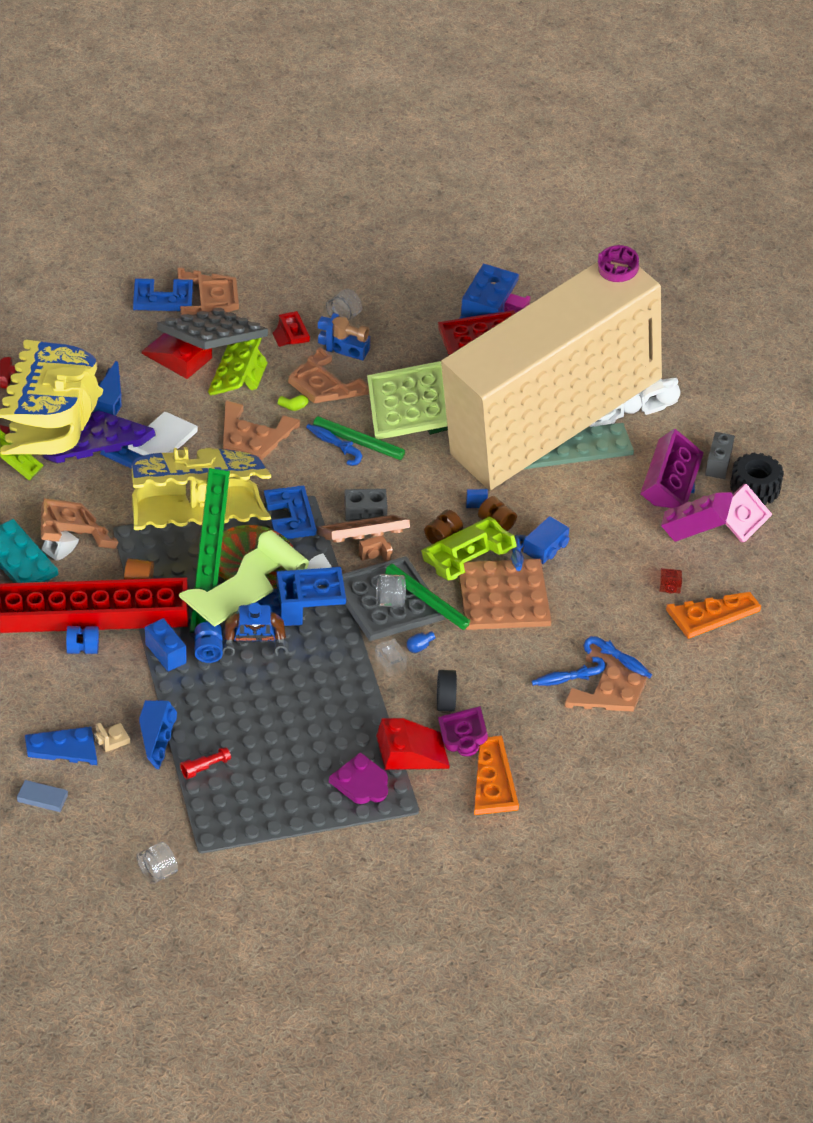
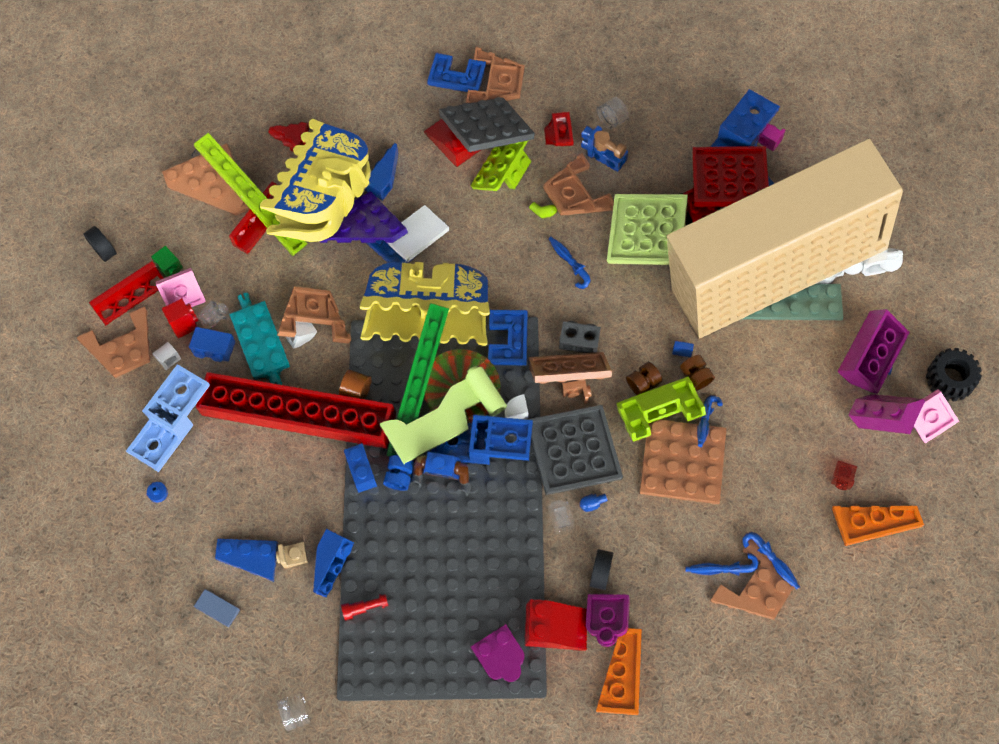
camera: 20 degrees right, 20 degrees up
(90, 639) = (296, 449): blue wheel -> none
(251, 437) = (496, 243): nougat wing -> none
(360, 438) = (593, 260): green axle -> none
(390, 590) = (575, 450): clear piece -> none
(430, 598) = (610, 458): green axle -> none
(546, 540) = (736, 409): blue brick -> none
(622, 255) = (868, 147): magenta piece -> none
(720, 455) = (924, 340): dark grey brick -> none

